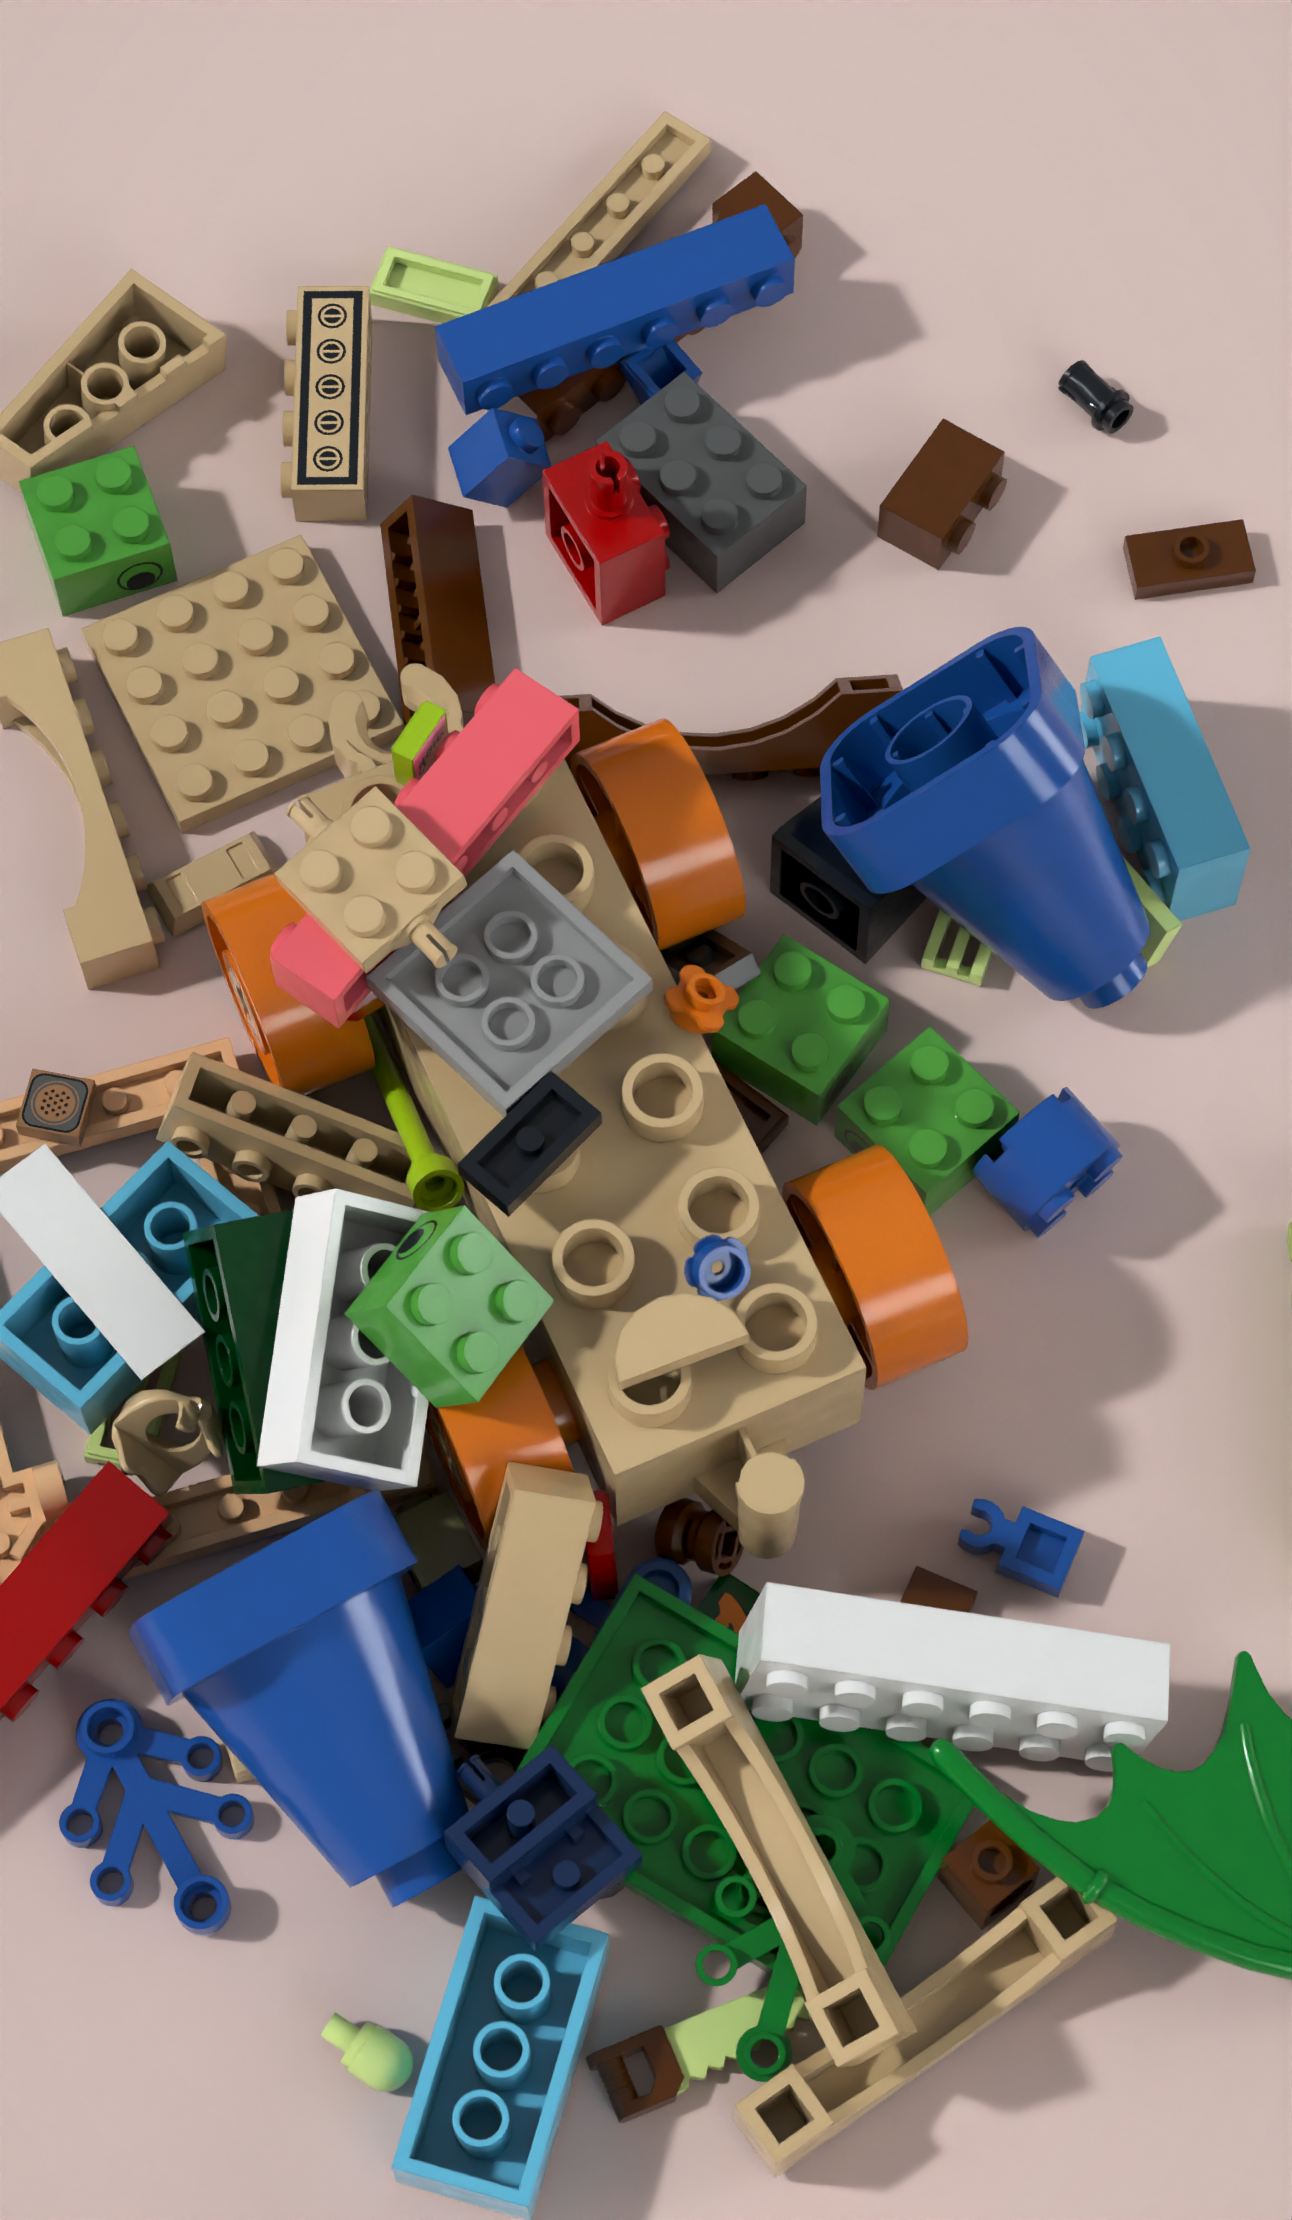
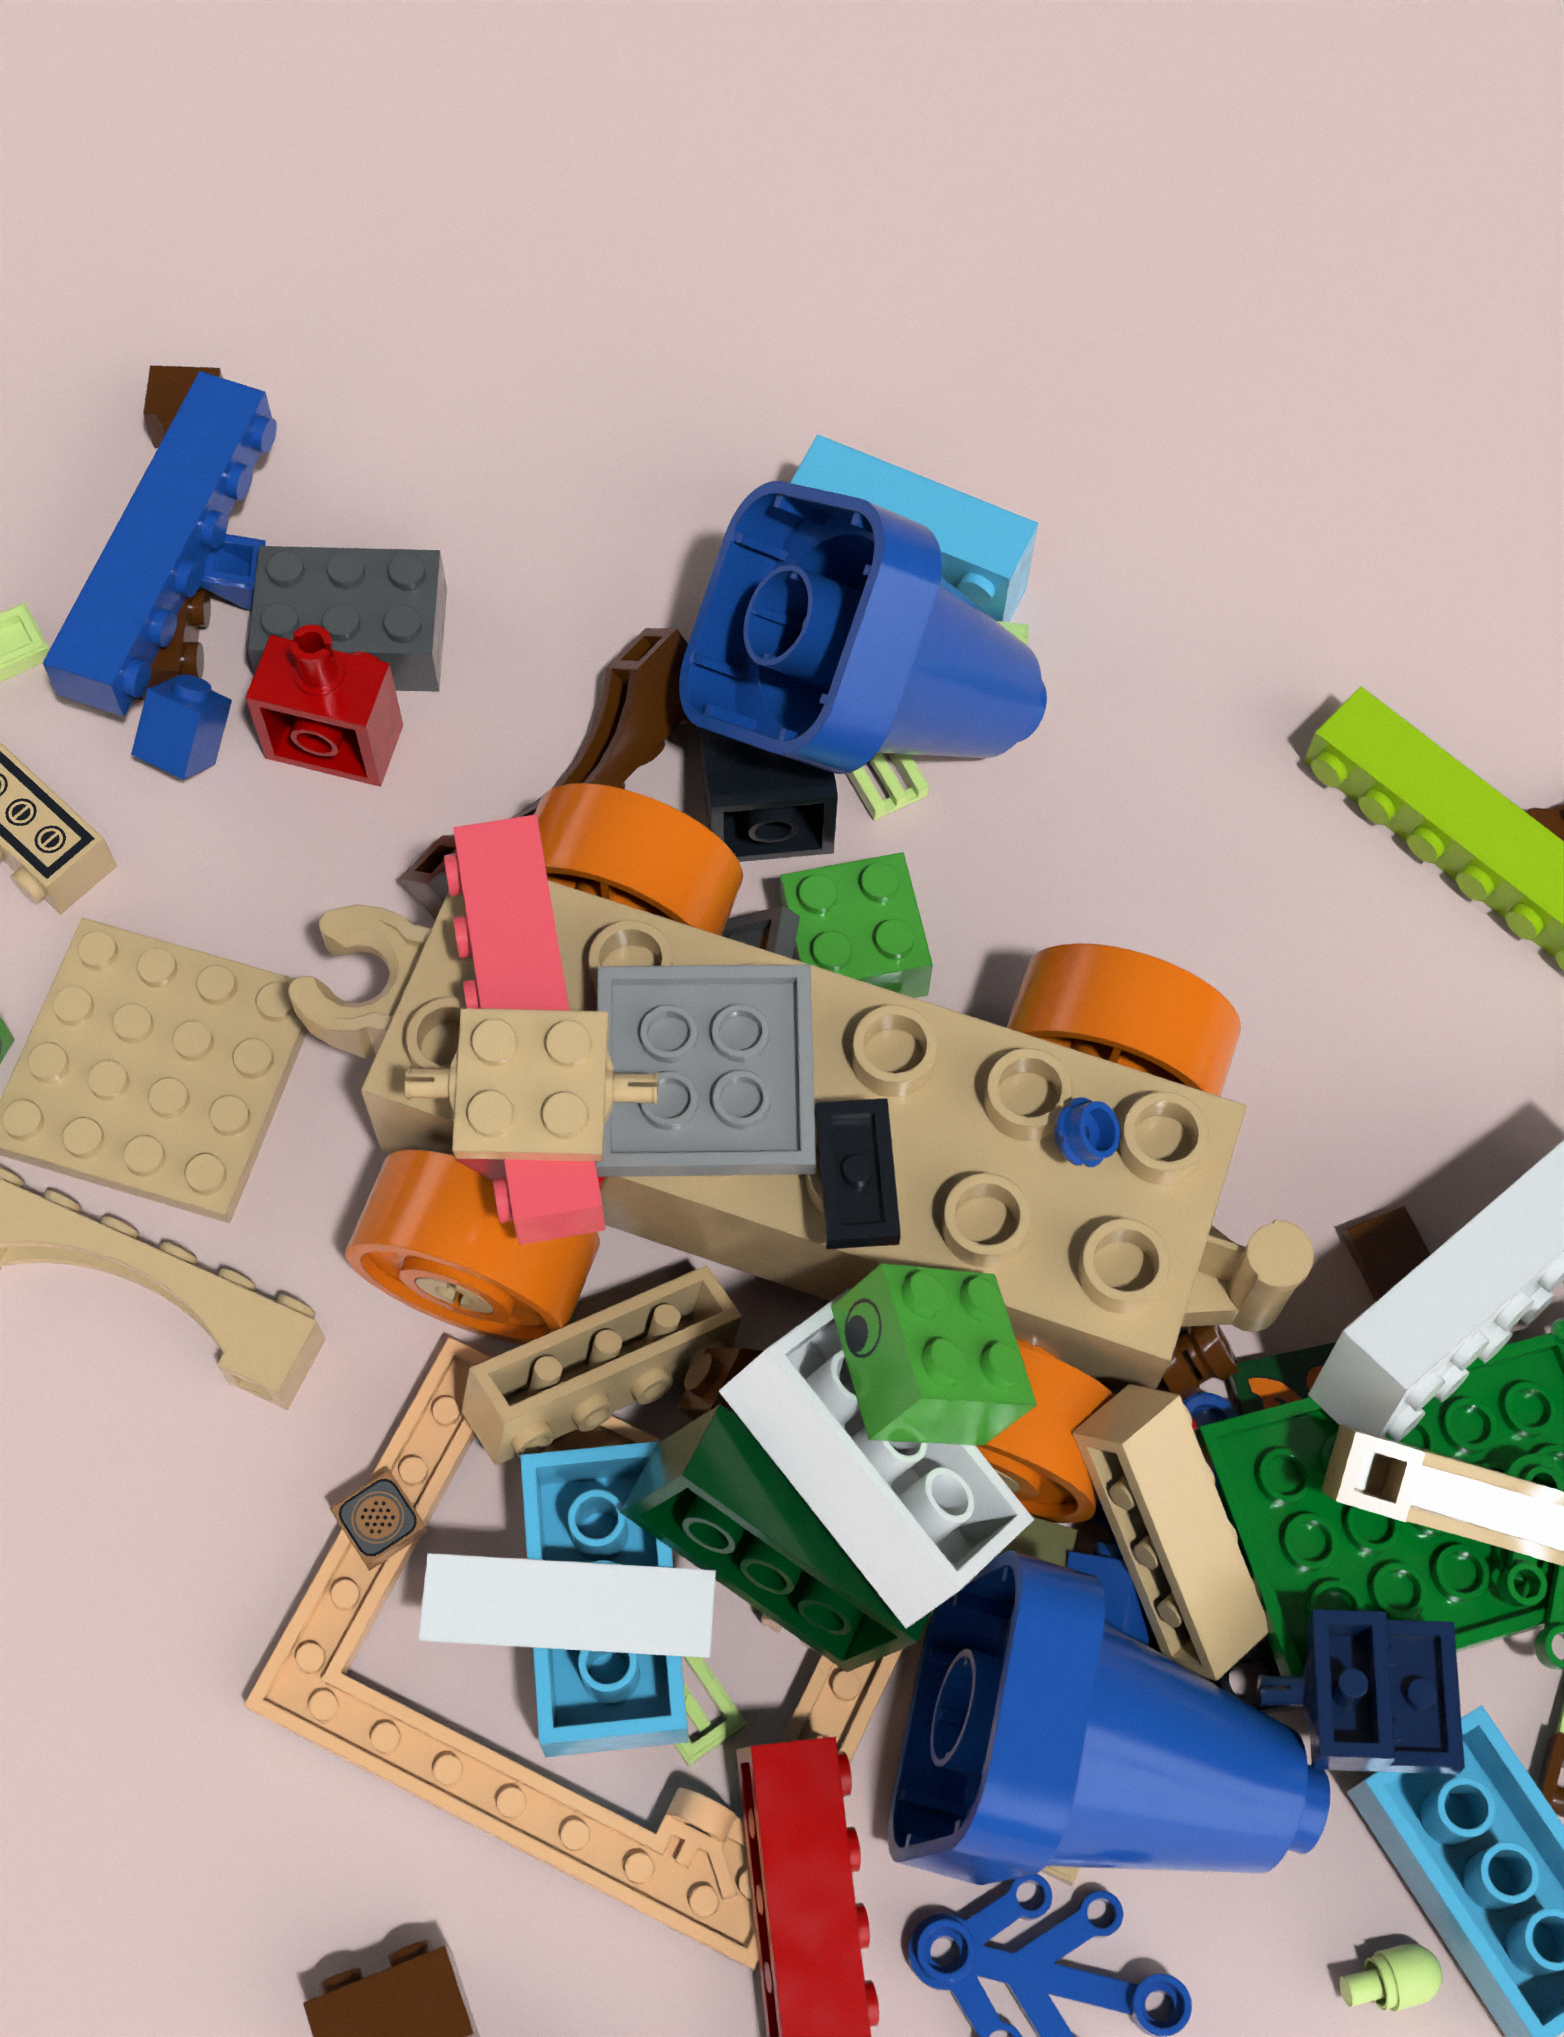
camera: 50 degrees left, 0 degrees up
(160, 1460) = (762, 1704): tan piece -> none
(229, 867) = (299, 1236): tan tile -> none
(418, 743) = (434, 955): lime tile -> none
(432, 1176) = (755, 1283): lime piece -> none
(438, 597) = (247, 880): reddish brown brick -> none
(616, 206) = (64, 492): tan plate -> none
(673, 1335) = (1114, 1212): tan tile -> none
(699, 1001) = (840, 956): orange plate -> none
(929, 1116) = (1005, 910): bright green brick -> none
(942, 495) = (531, 482): reddish brown brick -> none
(1032, 1549) = (1402, 1139): blue plate -> none
(1047, 1160) = (1128, 865): blue brick -> none
(1103, 403) = (559, 330): black pin -> none
(1189, 559) = (740, 387): reddish brown plate -> none

